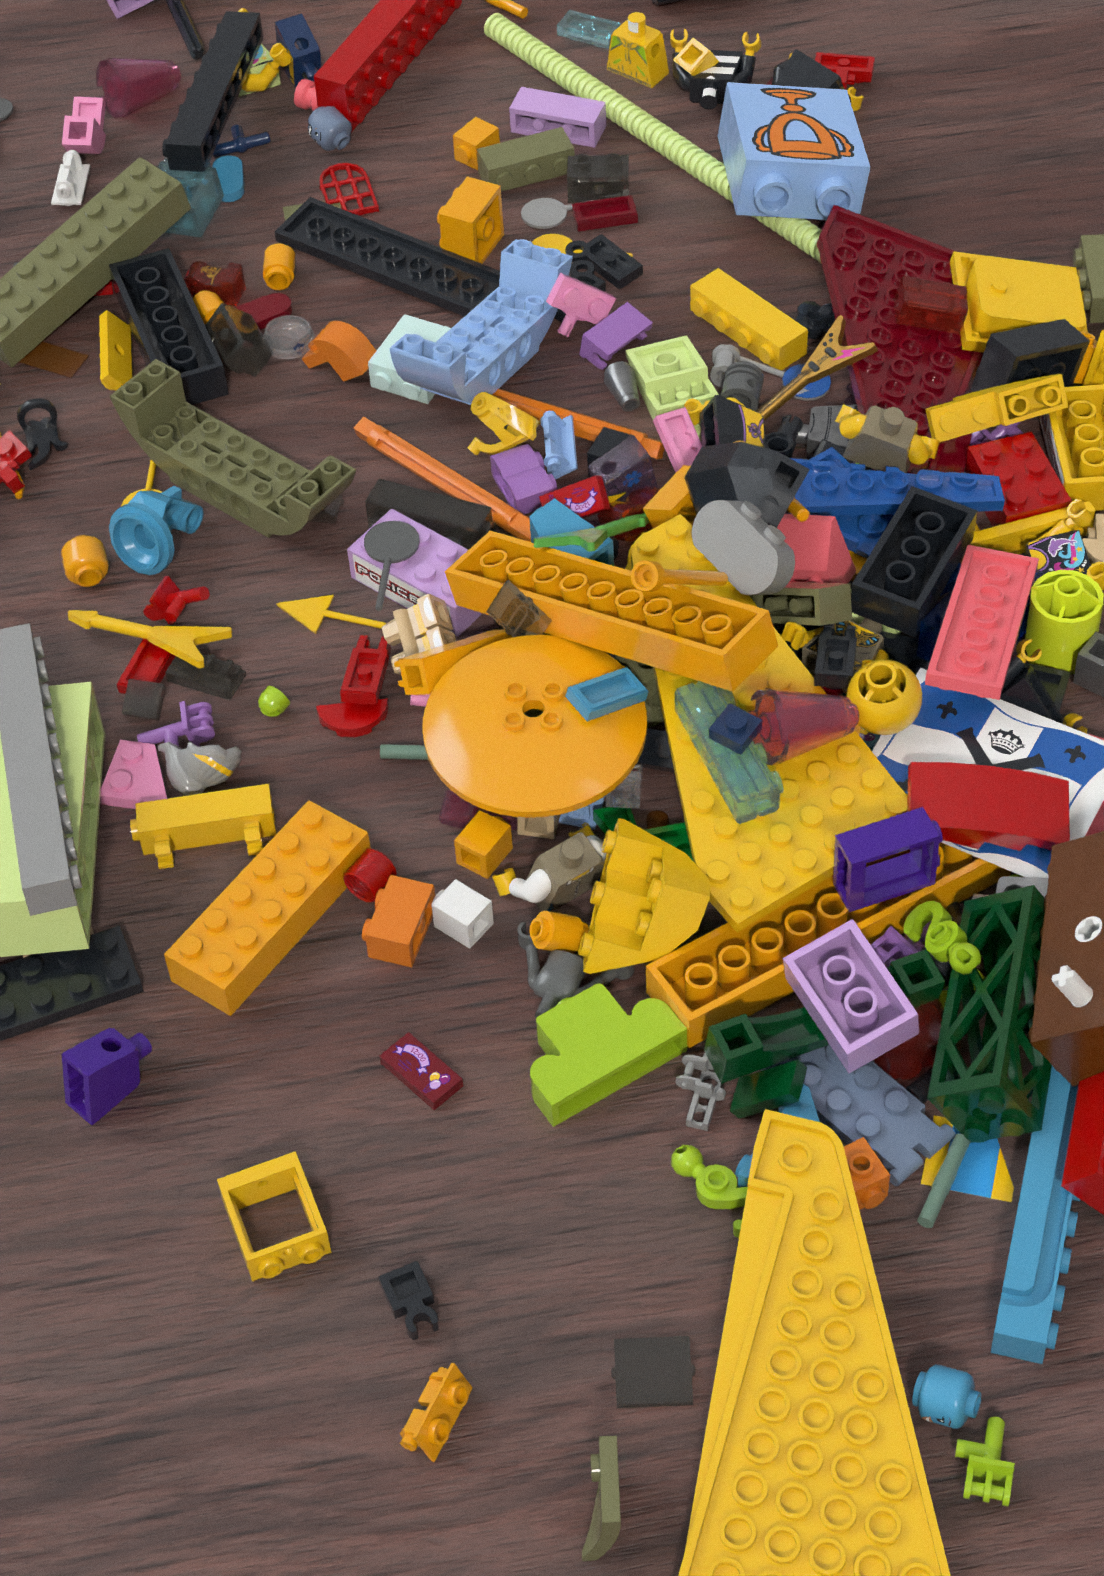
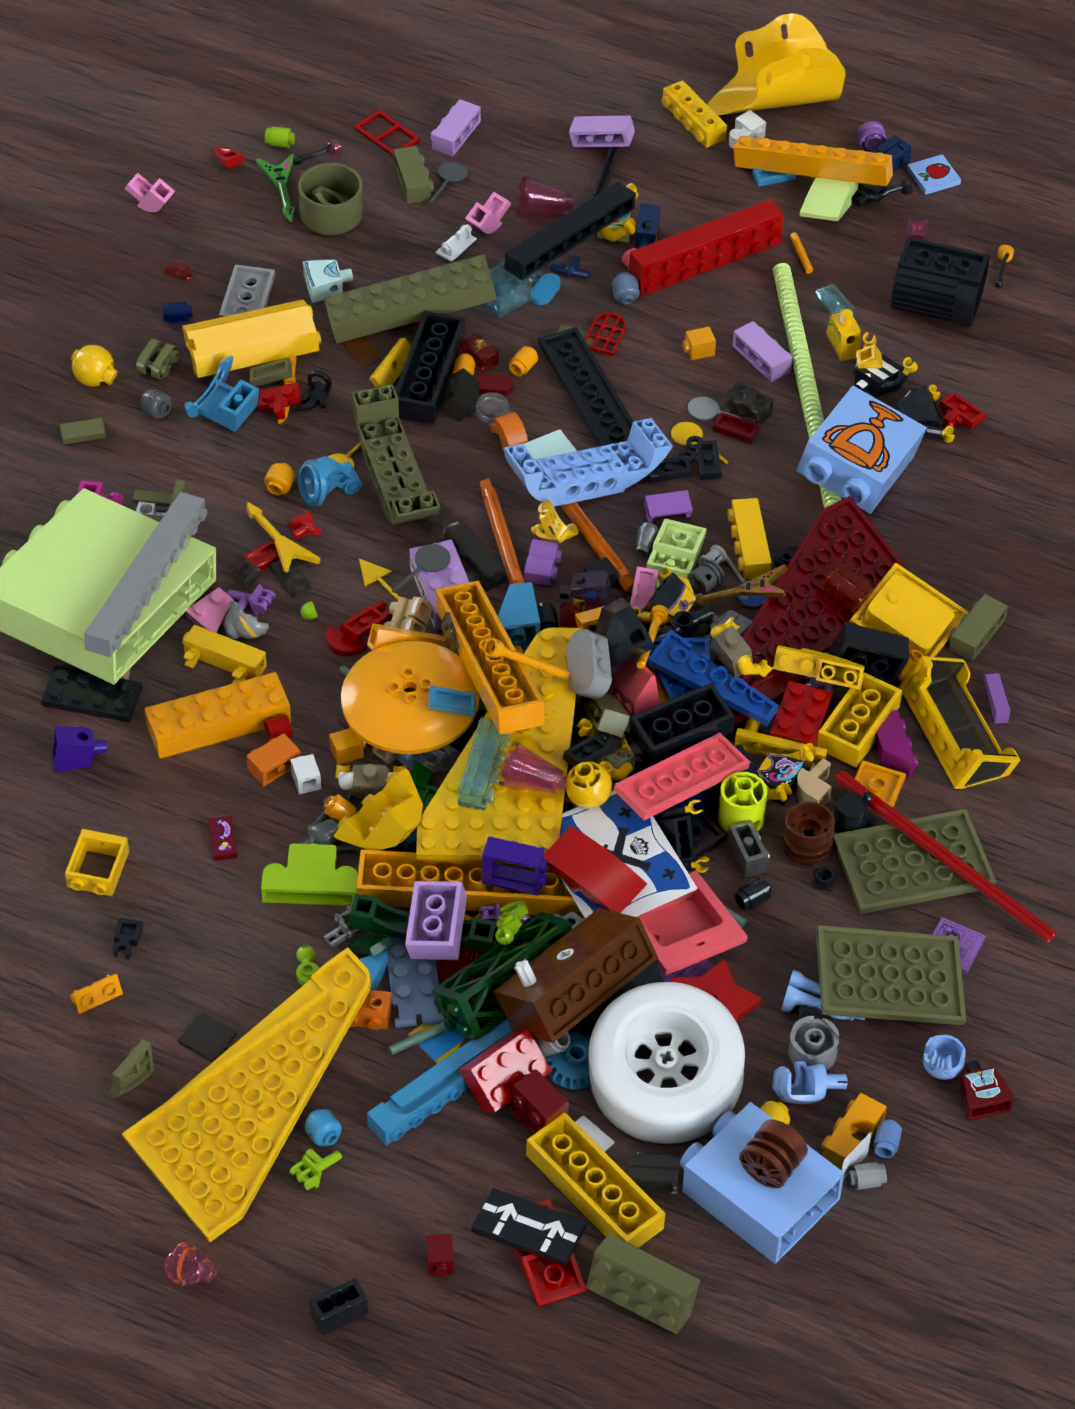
camera: 30 degrees right, 0 degrees up
(472, 220) = (646, 393): light orange brick -> none
(525, 159) = (717, 369): olive brick -> none
(559, 444) = (572, 559): light blue hinge -> none
(579, 302) = (661, 475): bright pink plate -> none
(583, 497) = (552, 590): red tile -> none
(592, 538) = (518, 613): bright green piece -> none
(735, 728) = (488, 754): dark blue plate -> none

